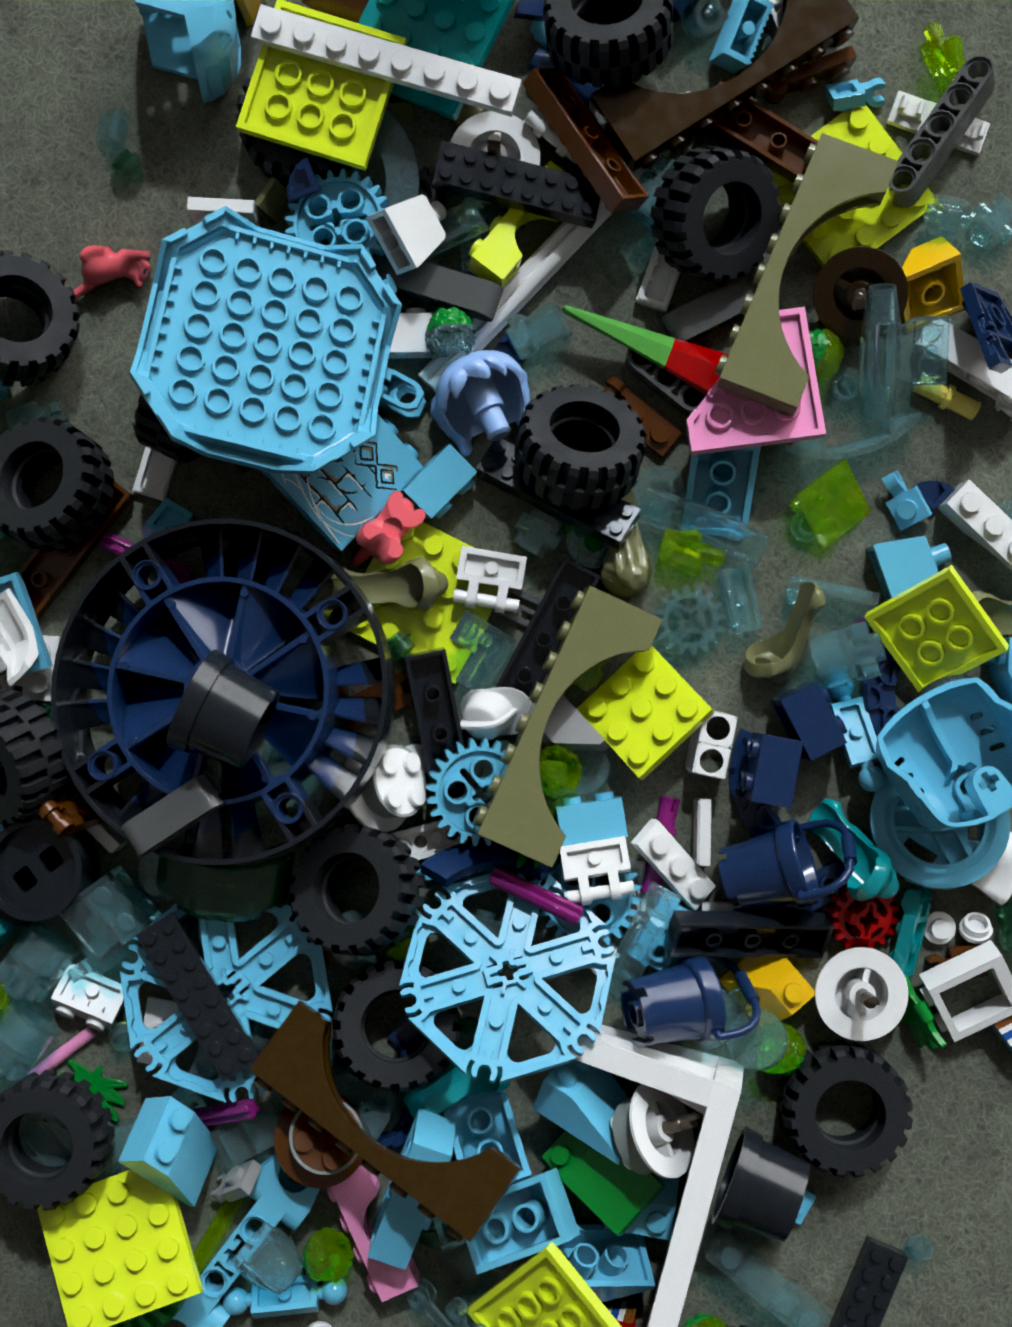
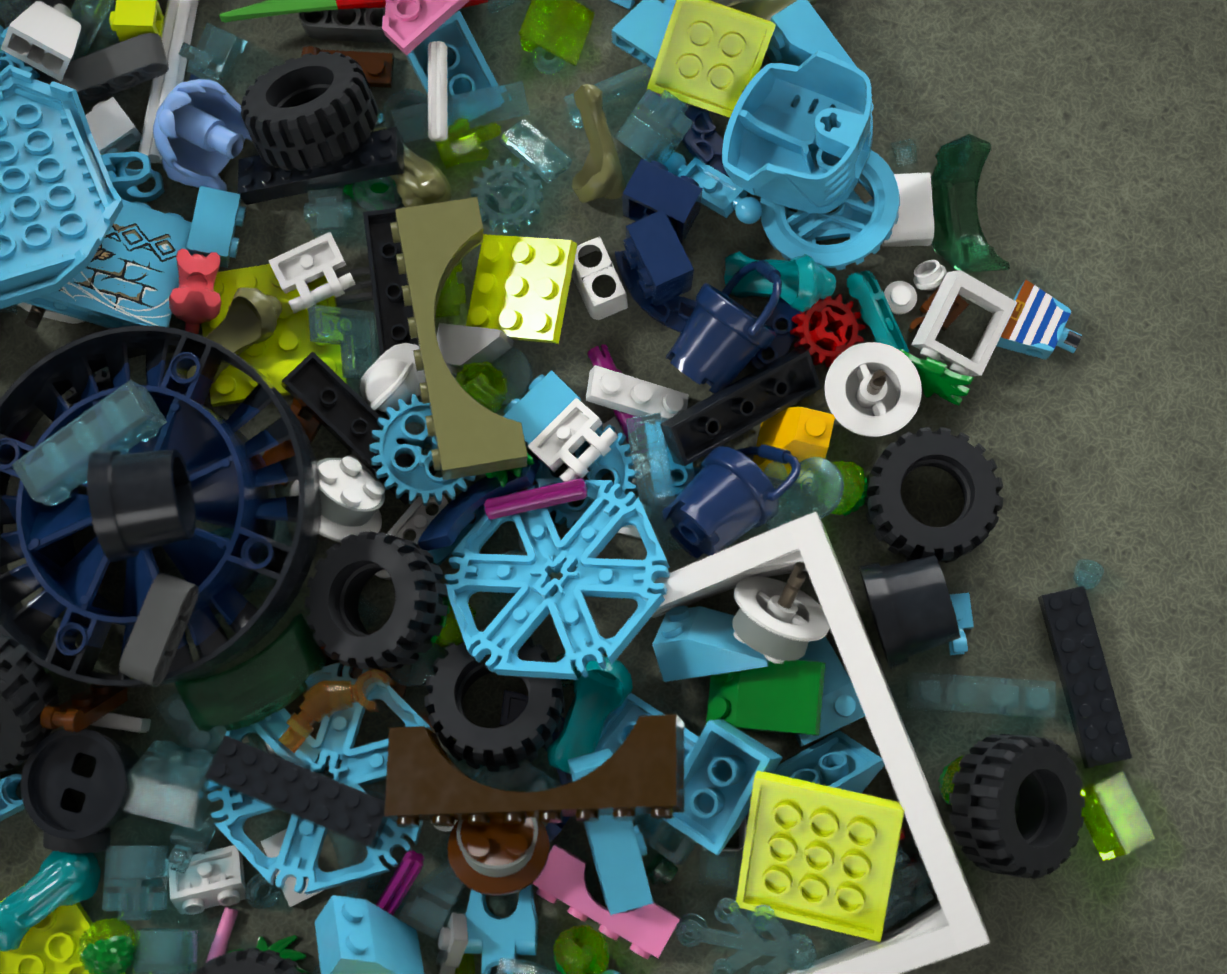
camera: 30 degrees left, 10 degrees down
(216, 625) = (112, 424): none -> clear light blue brick
(265, 936) = (326, 699): none -> clear orange piece
(400, 645) = (275, 375): clear green plate -> none
(449, 332) = (136, 96): clear light blue piece -> none
(694, 500) = (437, 91): none -> white axle
(702, 831) = (642, 355): white tile -> none

